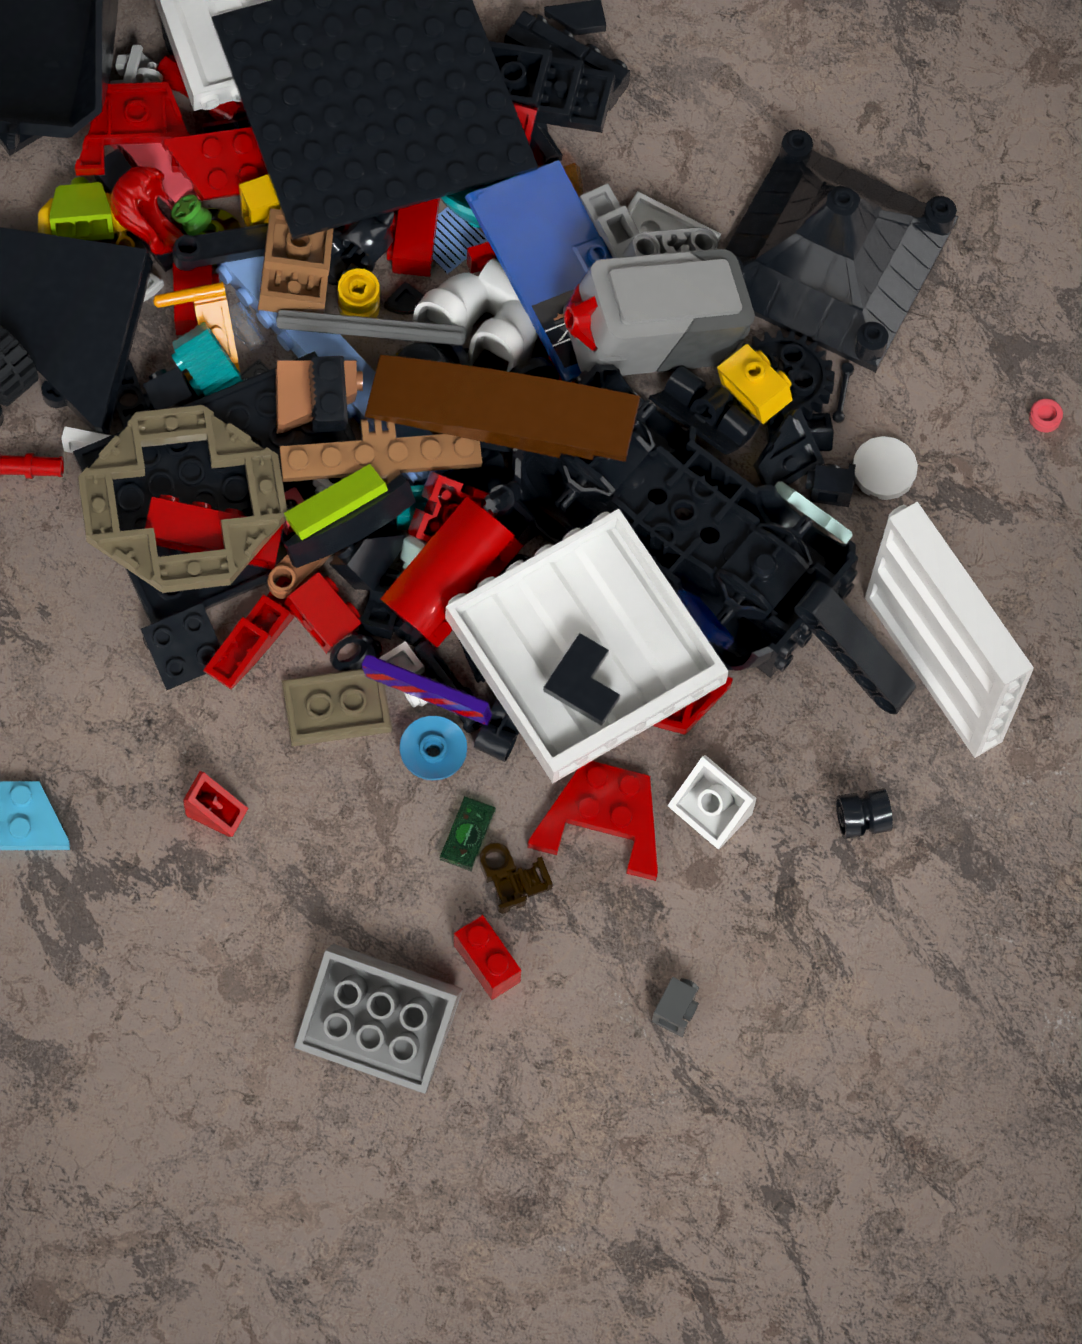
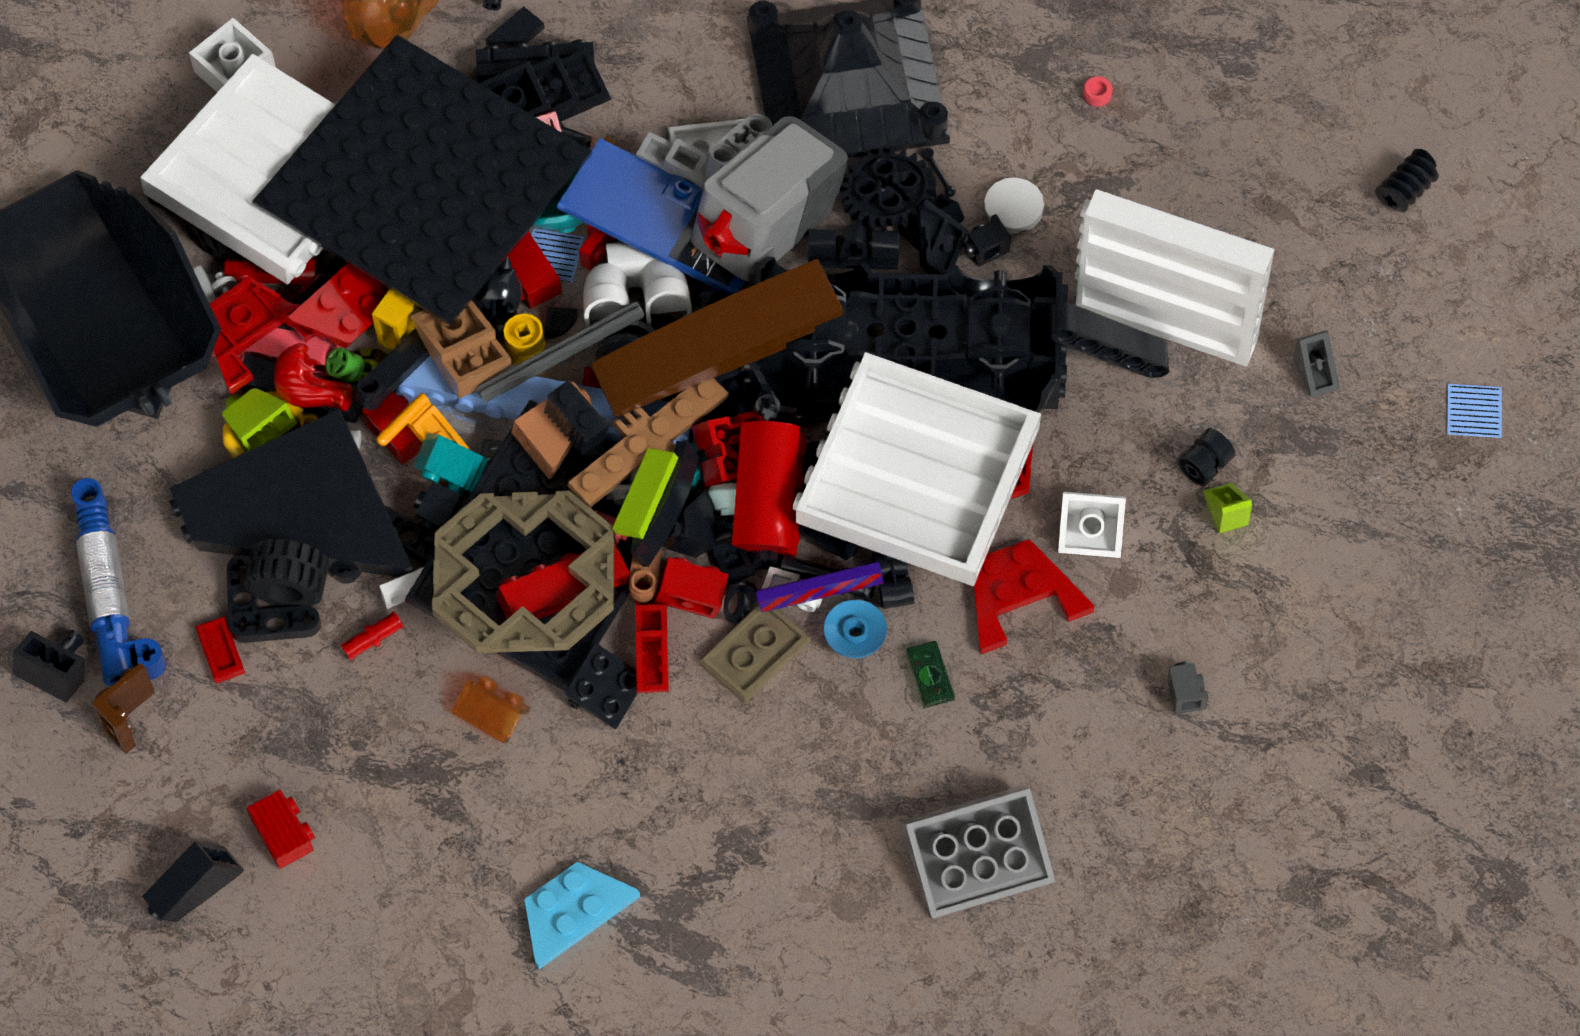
camera: 30 degrees left, 5 degrees down
(75, 597) = (490, 708): none -> clear orange bracket
(213, 805) = (726, 785): red slope -> none
(487, 957) = (1021, 750): red brick -> none
(515, 882) = (996, 685): dark brown piece -> none
(574, 682) = (937, 499): black tile -> none
(706, 620) = (1002, 393): clear blue tile -> none
(755, 382) = (878, 203): yellow brick -> none
(813, 512) = (986, 268): light aqua tile -> none
(848, 871) = (1228, 507): none -> lime slope
(1034, 800) = (1316, 363): none -> dark grey slope

